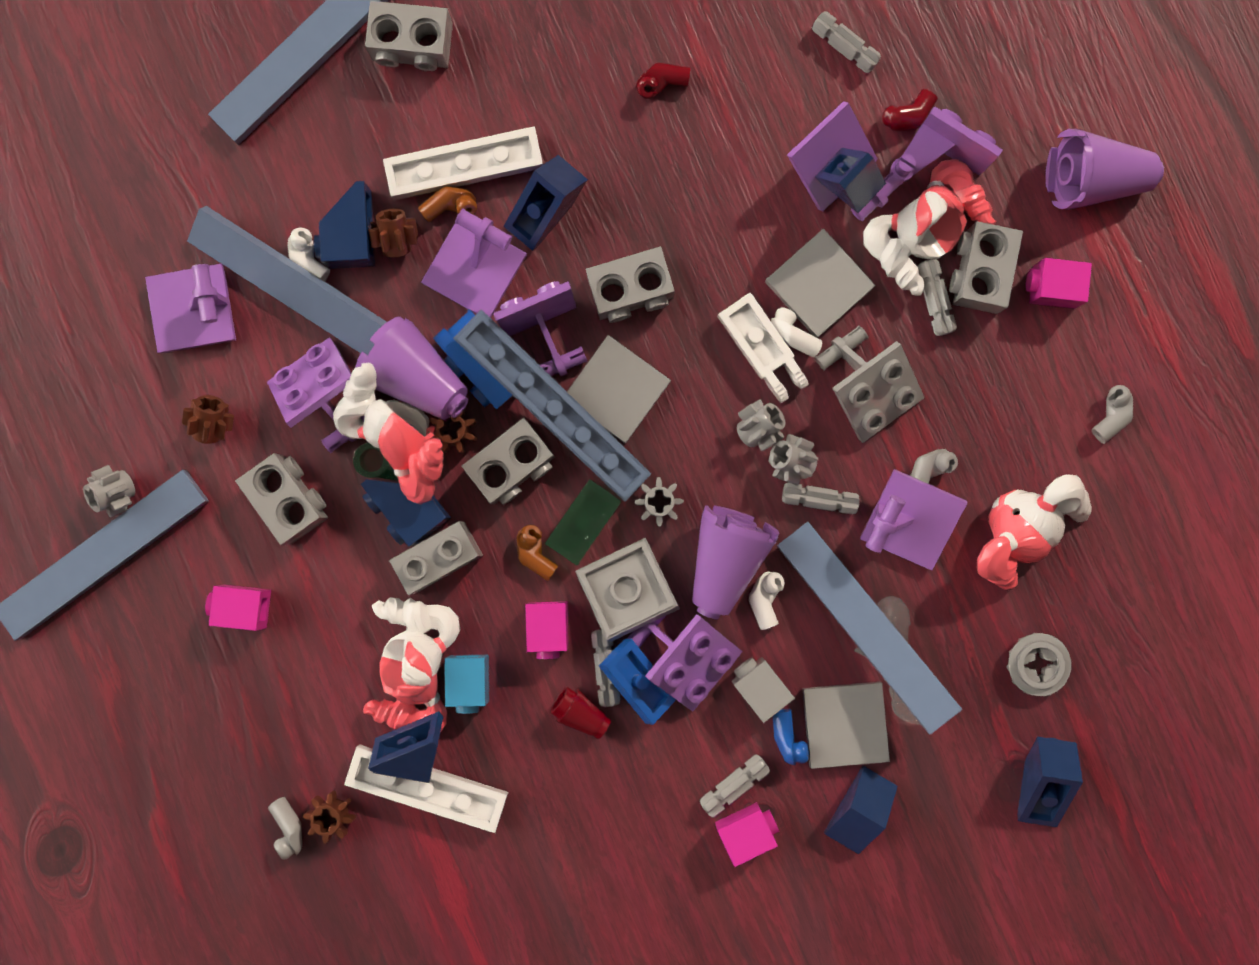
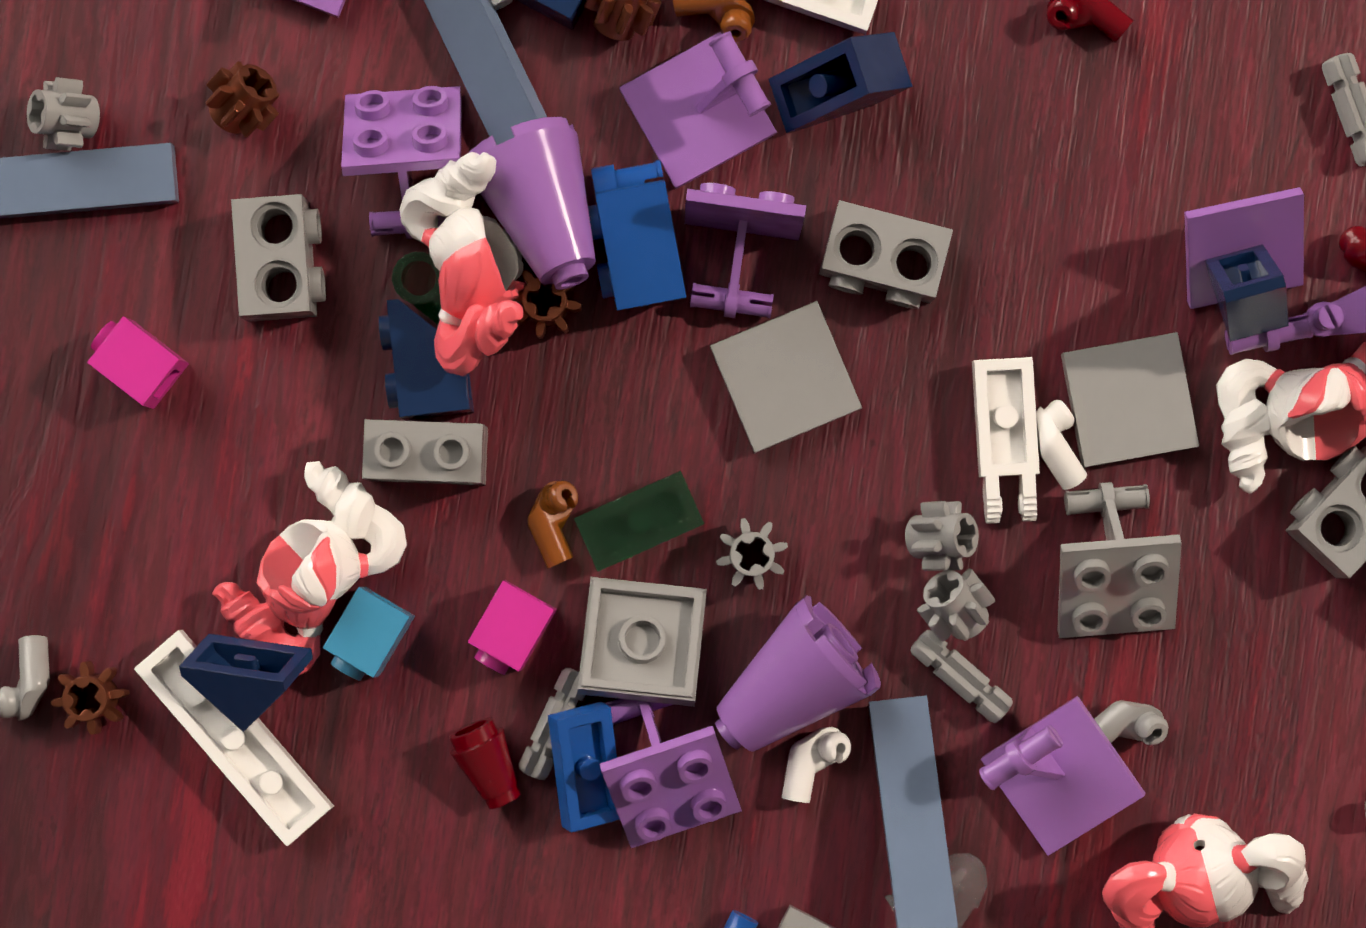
camera: 30 degrees right, 0 degrees up
(503, 453) = (590, 371): light grey brick -> none
(551, 405) = (690, 349): sand blue tile -> none
(761, 688) = (737, 871): light grey brick -> none
(937, 297) = (1269, 509): light grey axle -> none

